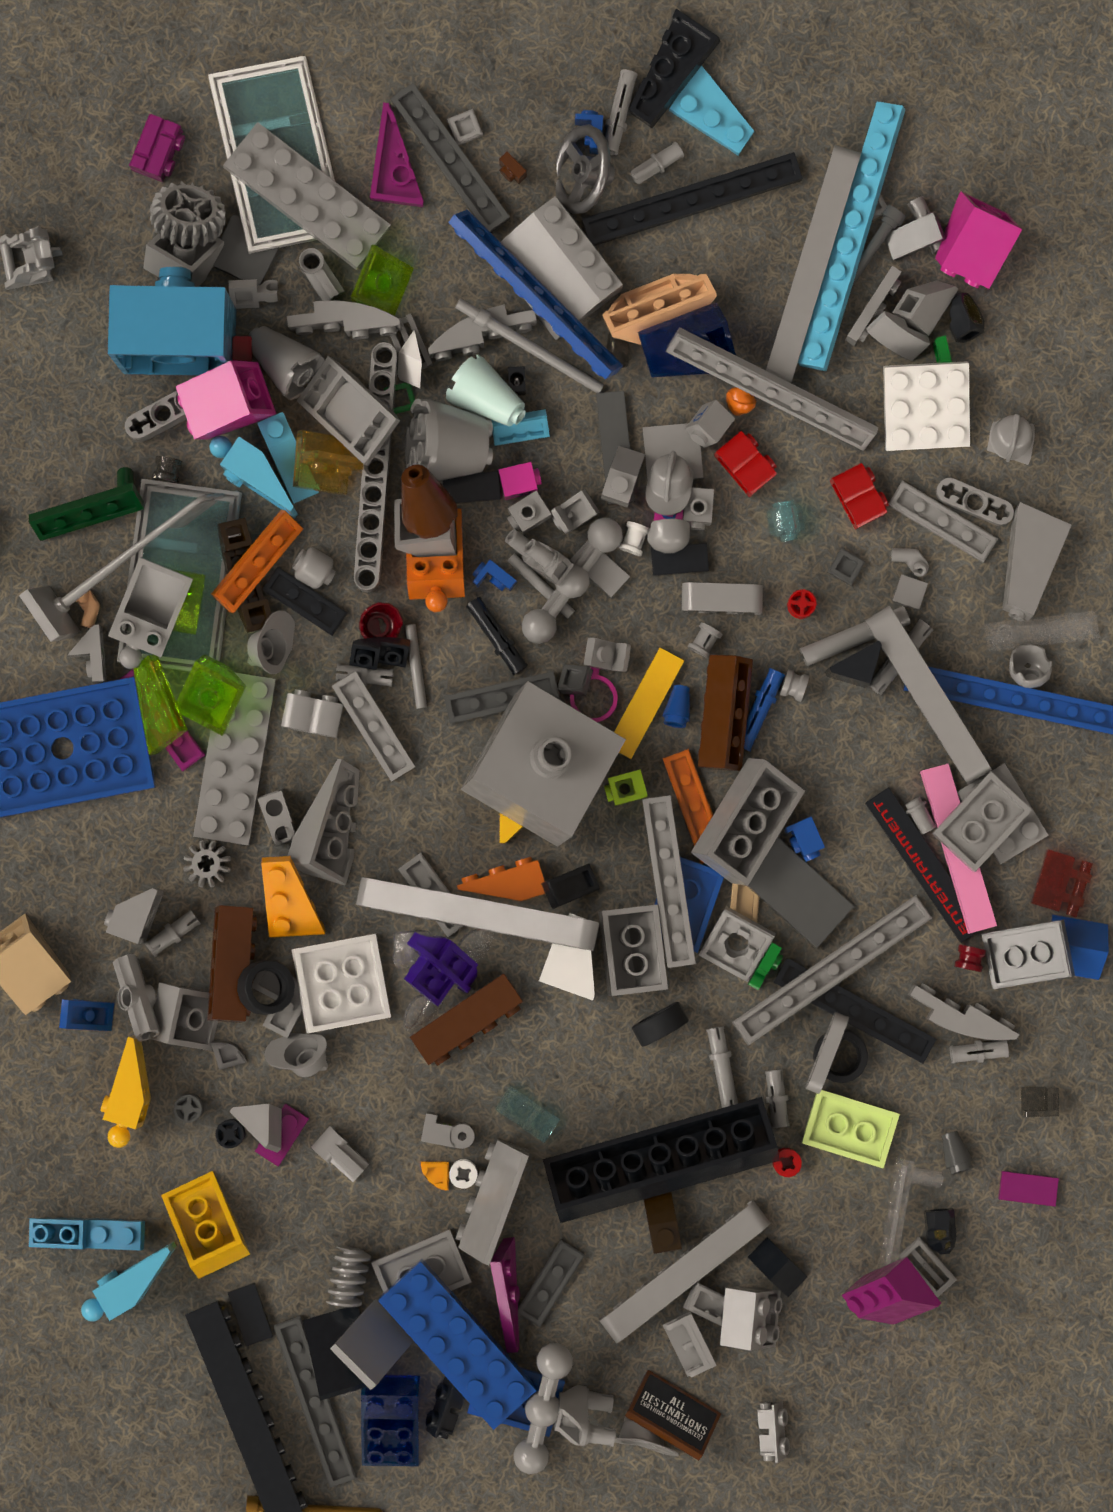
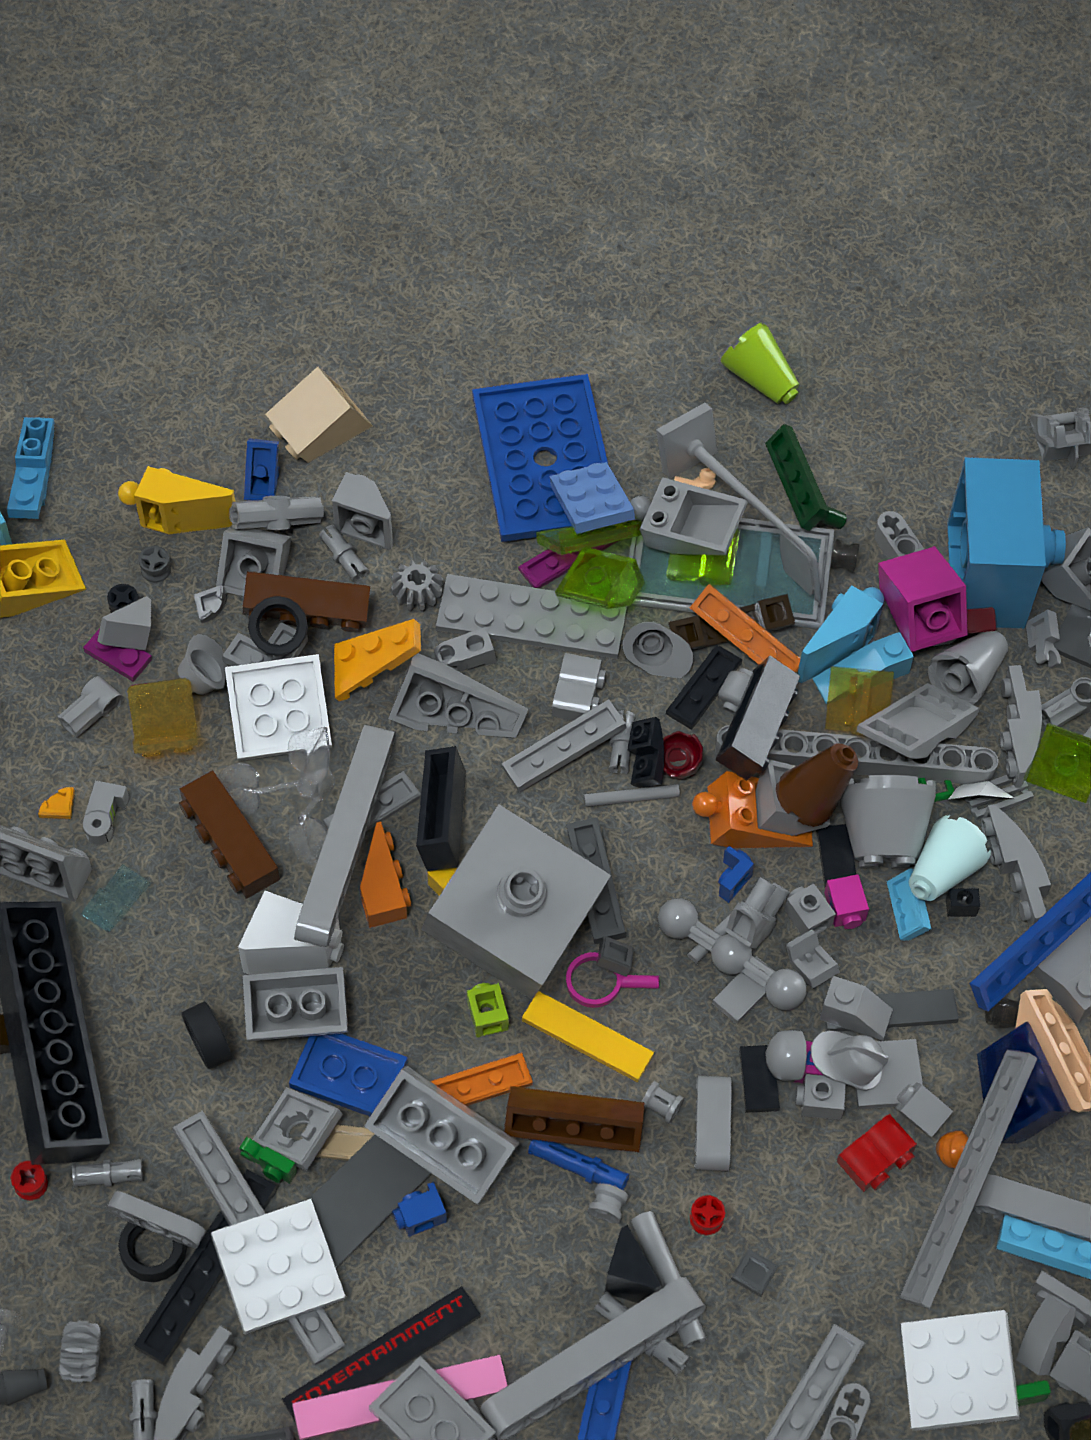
camera: 90 degrees right, 25 degrees down
(92, 645) = (646, 484): light grey slope -> none
(122, 702) = (592, 497): none -> medium blue plate
(356, 551) = (759, 718): none -> brick
(356, 1085) = (163, 717): none -> clear yellow bracket
(439, 967) = (285, 789): dark purple plate -> none
(445, 832) = (441, 809): none -> black brick
(467, 1171) = (60, 834): white wheel -> none
(482, 318) = (1032, 857): light grey bar -> none
(498, 638) = (636, 895): black pin -> none
(570, 886) = (374, 944): black tile -> none
(607, 655) = (644, 990): light grey bracket -> none
(634, 538) = (779, 1022): white bush -> none
(668, 881) = (374, 1047): light grey plate -> none
(678, 707) = (582, 1070): blue cone -> none
(722, 1066) = (162, 1108): light grey pin -> none
(785, 520) = (809, 1197): clear light blue head -> none
(850, 1128) = (62, 1257): yellowish green plate -> none
(859, 495) = (843, 1287): red brick -> none
(860, 951) = (277, 1266): none -> white plate
(909, 592) = (724, 1349): light grey tile -> none
(912, 558) = (767, 1353): light grey arm -> none
(920, 815) = (445, 1352): light grey pin -> none
(932, 1105) = (80, 1351): none -> light grey gear
(970, 958) = (261, 1408): dark red wheel -> none

